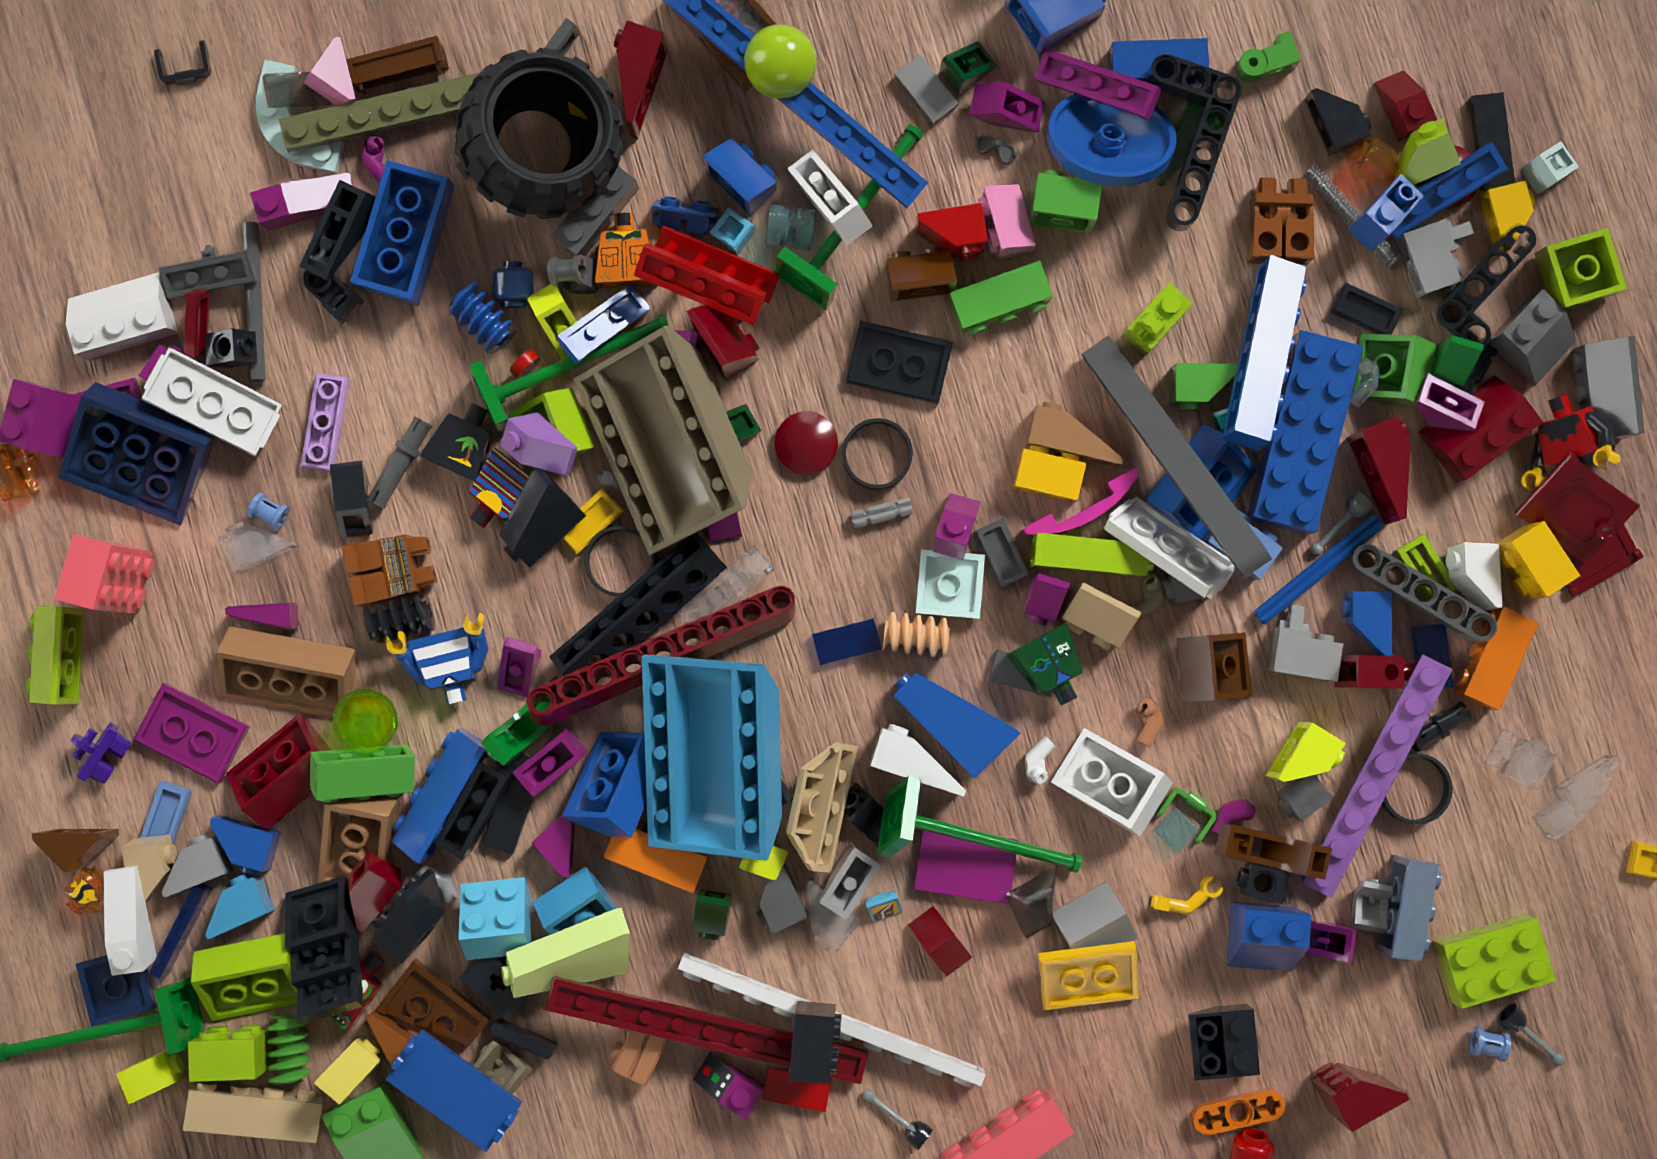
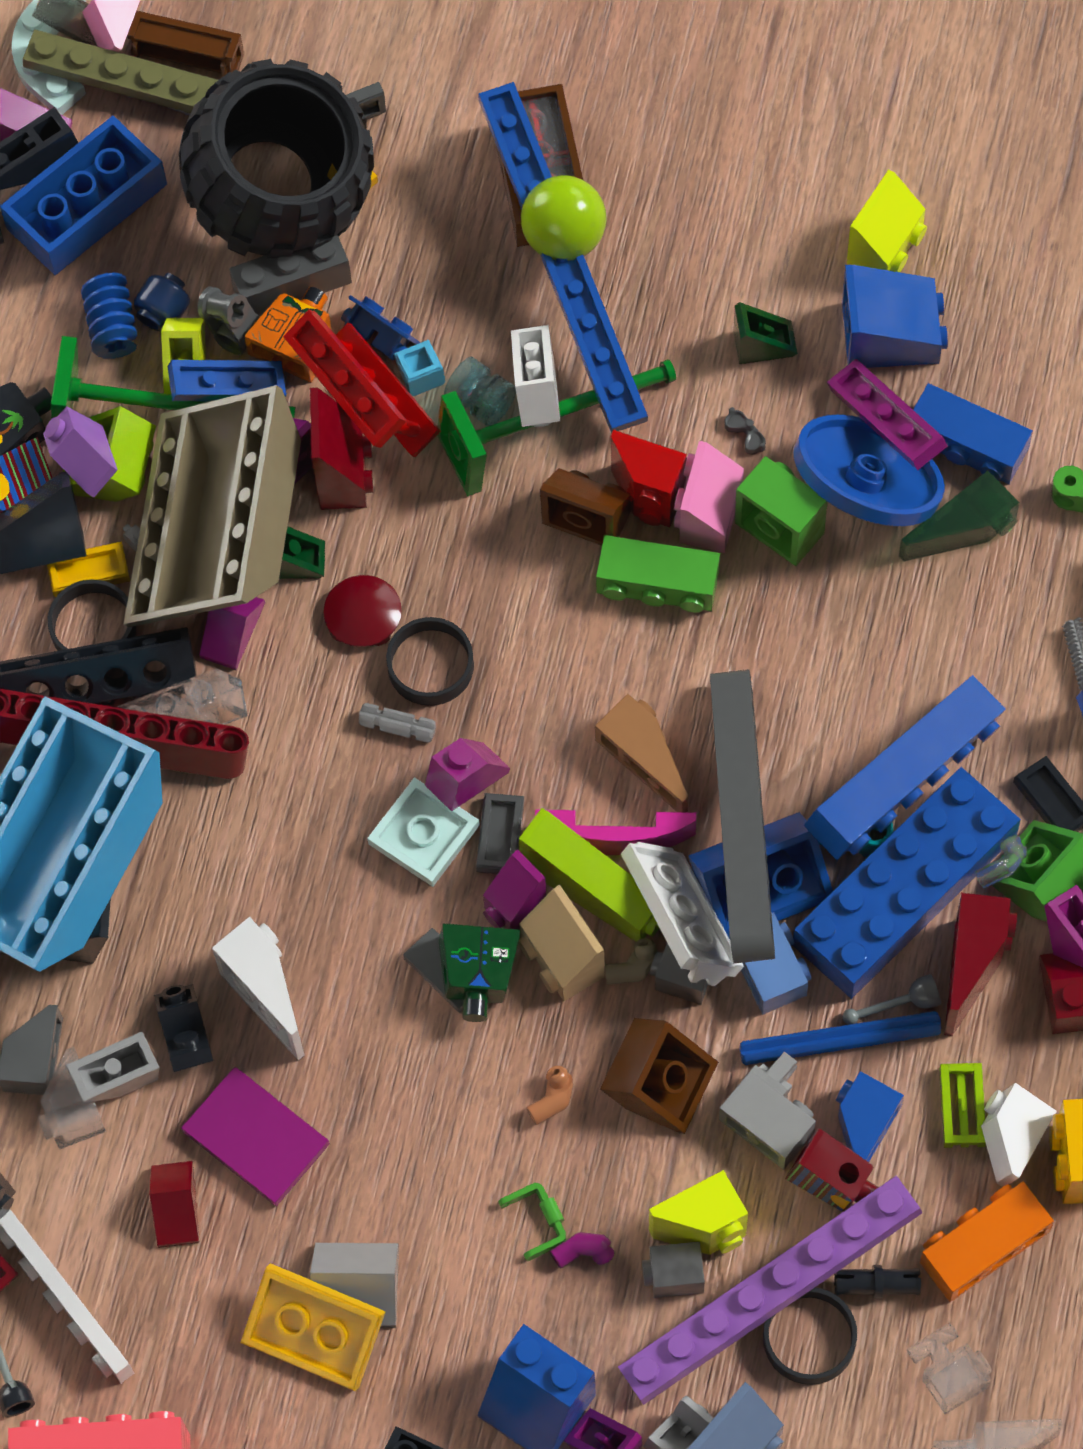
camera: 30 degrees right, 20 degrees down
(373, 156) = (108, 107): magenta arm -> none
(524, 364) = (124, 377): red tile -> none
(640, 62) = (419, 167): dark red slope -> none
(740, 175) = (460, 314): blue slope -> none
(769, 868) = (36, 991): neon yellow slope -> none
(820, 805) = (136, 969): tan wedge -> none
(846, 641) = (276, 833): clear blue tile -> none
(883, 905) = (137, 1127): slope -> none
(899, 362) = (512, 585): black tile -> none
(900, 820) = (212, 1024): green tile -> none
(916, 634) = (352, 862): light nougat piece -> none
(926, 89) = (707, 338): light grey tile -> none
(960, 727) = (341, 985): blue slope -> none
(1006, 106) = (779, 392): magenta slope -> none
(1034, 902) = (305, 1216): clear smoke slope -> none
(1035, 761) = (401, 1067): white arm -> none
(1049, 474) = (600, 777): yellow brick -> none
(1112, 782) = (471, 1136): white slope -> none
(1157, 319) = (812, 680): lime hinge -> none
(1176, 829) = (511, 1230): clear light blue tile -> none
(1186, 907) = (450, 1304): yellow arm -> none
(1198, 382) = (817, 769): bright green slope -> none
(1203, 135) = (964, 515): black beam -> none
(1273, 850) = (598, 1303): reddish brown arch -> none
(1276, 885) = (592, 1342): black brick -> none
(1281, 222) = (1017, 647): dark orange hips -> none
(1433, 643) = (925, 1186): clear blue tile -> none
(1440, 594) = (941, 1134): dark grey beam -> none

